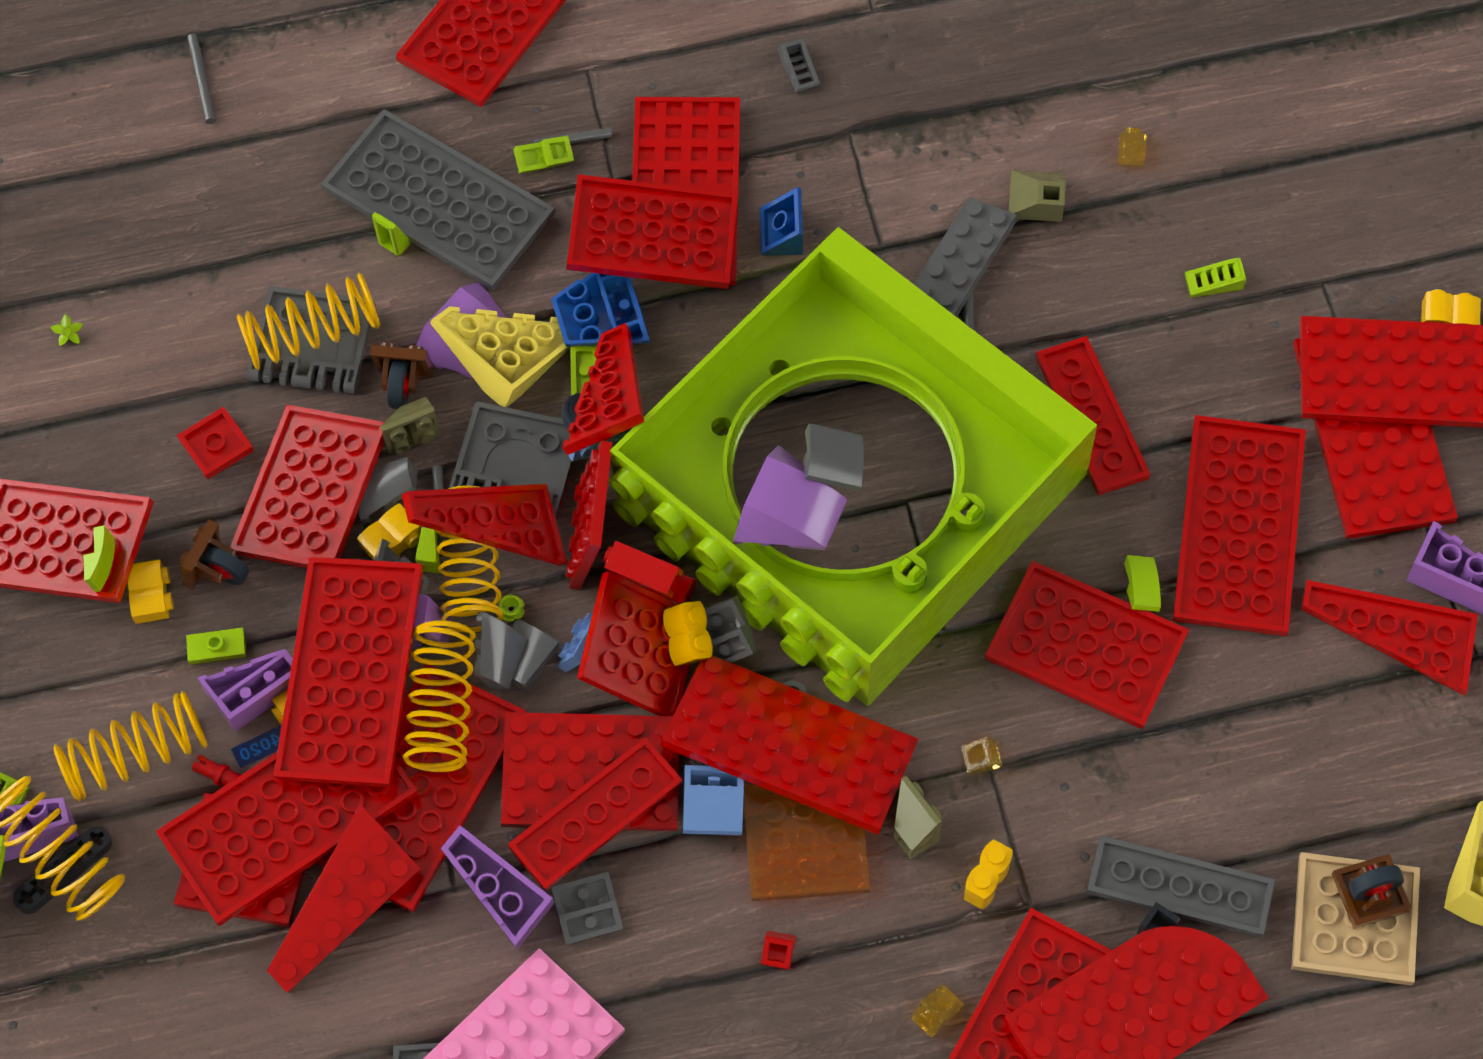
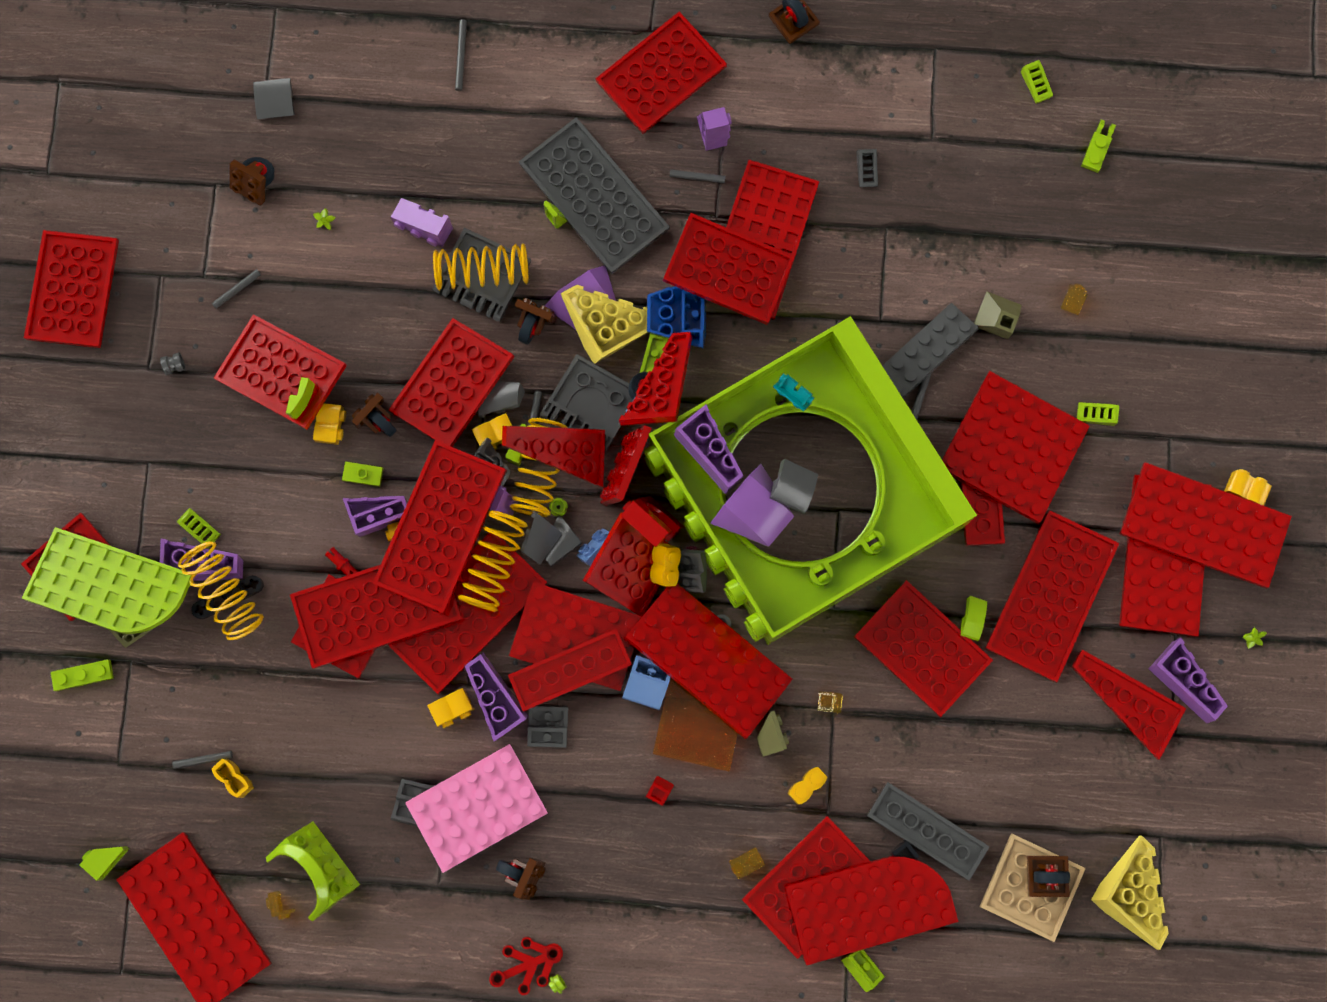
camera: 15 degrees right, 15 degrees up
(73, 777) = (331, 513): yellow piece -> none
(208, 294) = (422, 222): none -> wedge
(215, 443) = (399, 330): red plate -> none
(257, 747) = (371, 551): clear blue sticker -> none
(351, 888) = (403, 669): red wing -> none
(410, 426) = (528, 358): olive slope -> none
(437, 923) = (451, 707): none -> yellow brick
(543, 155) = (674, 183): lime slope -> none
(576, 66) = (714, 128): none -> medium lavender wedge
(701, 443) = (709, 449): none -> medium lavender wedge
(782, 225) = (818, 286): blue slope -> none
(782, 339) = (800, 398): none -> teal hinge
(1121, 348) = (1014, 447): none -> red plate

